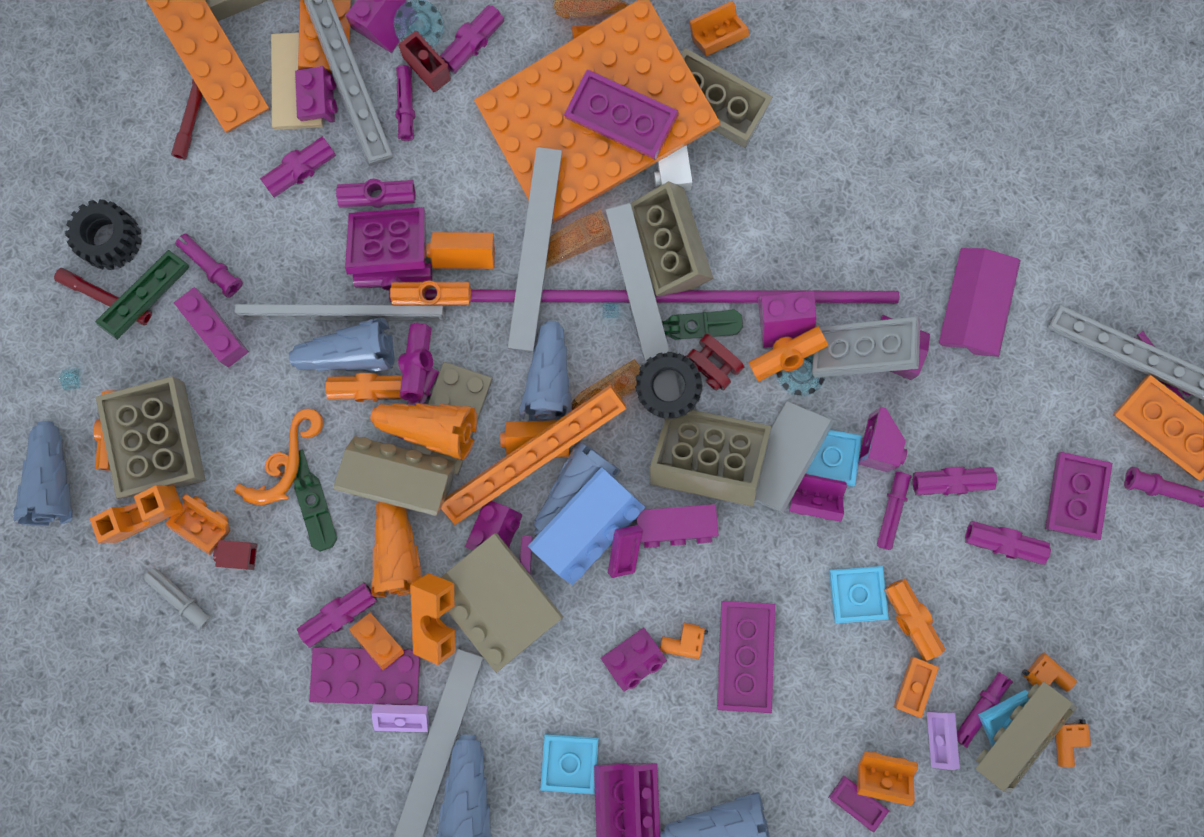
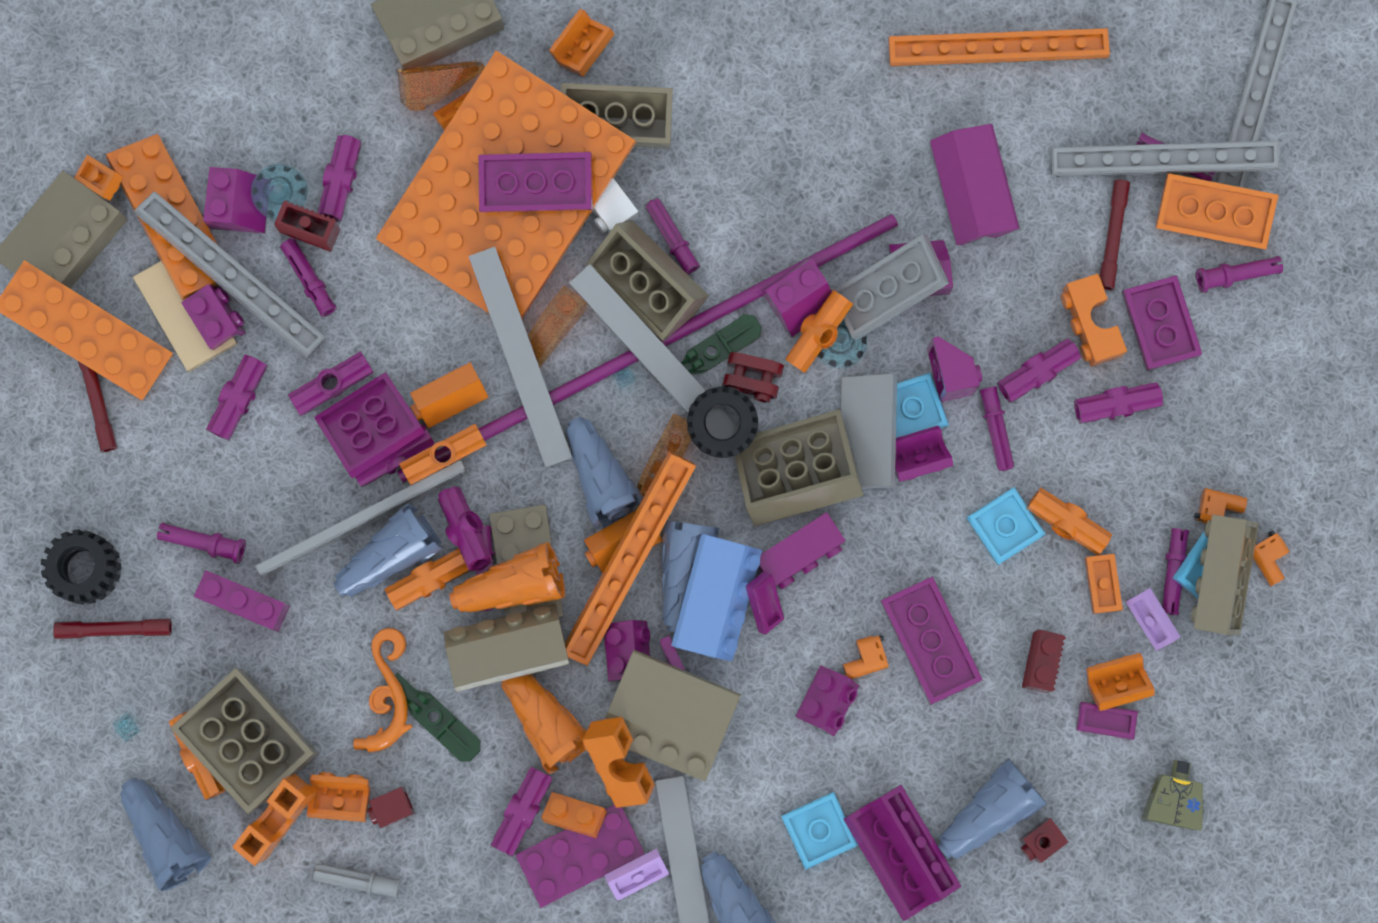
camera: 30 degrees left, 0 degrees up
(142, 294) = (154, 605): dark green tile -> none
(709, 218) = (672, 236): none -> magenta axle
(831, 725) = (1043, 661): none -> dark red brick
(1016, 484) = (1098, 343): none -> orange arch
(1058, 202) = (998, 47): none -> orange plate
(1058, 425) = (1118, 205): none -> dark red piece

